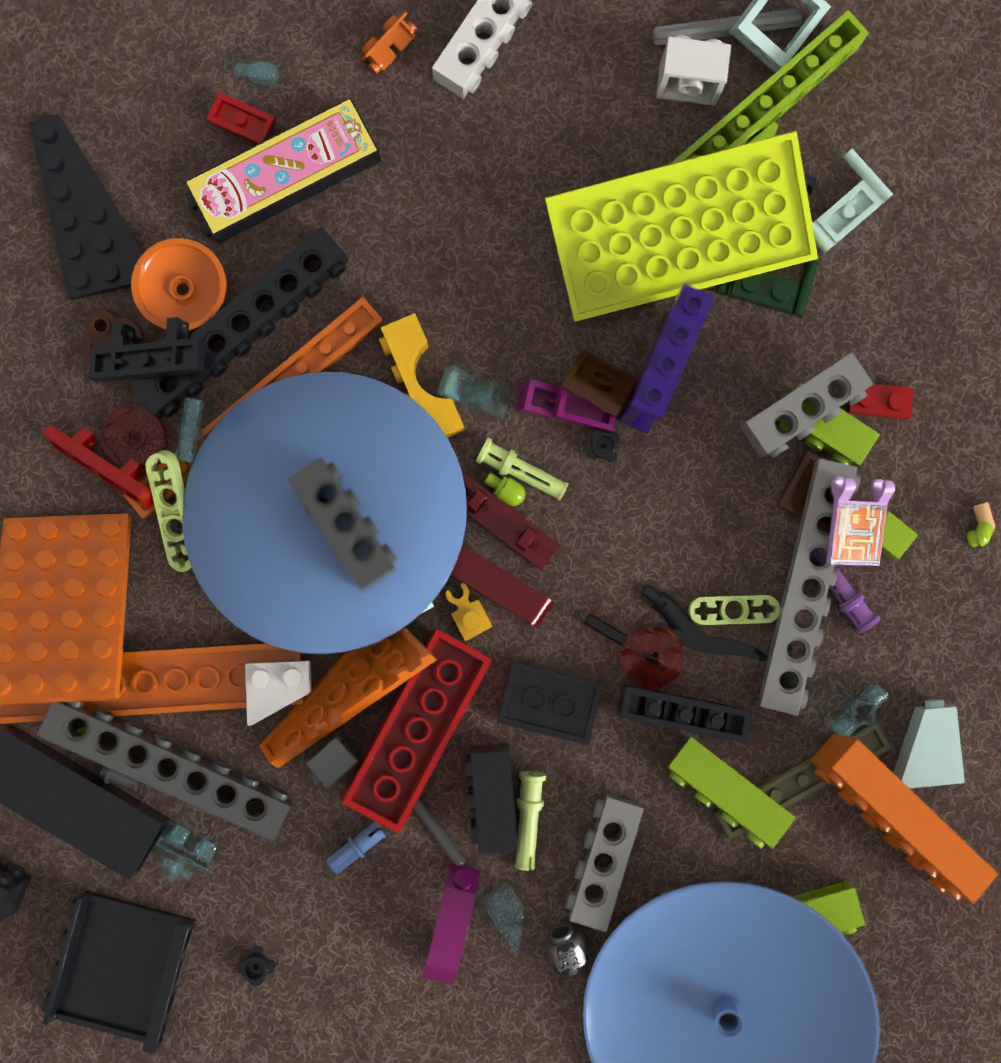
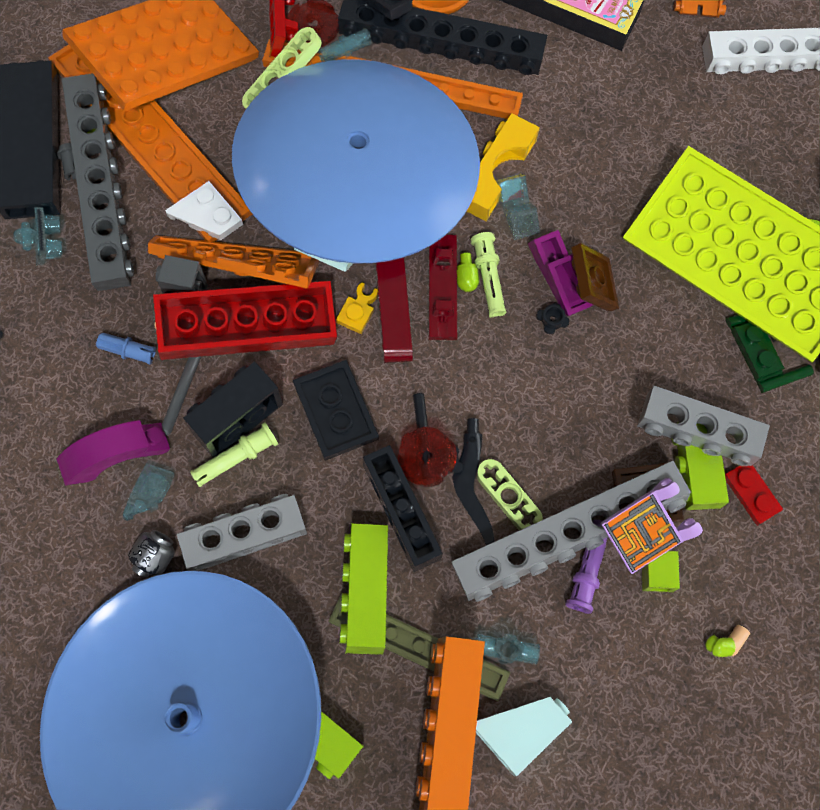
camera: 55 degrees right, 15 degrees down
(308, 485) = (367, 120): dark grey brick -> none
(667, 358) = (646, 298): dark purple panel -> none

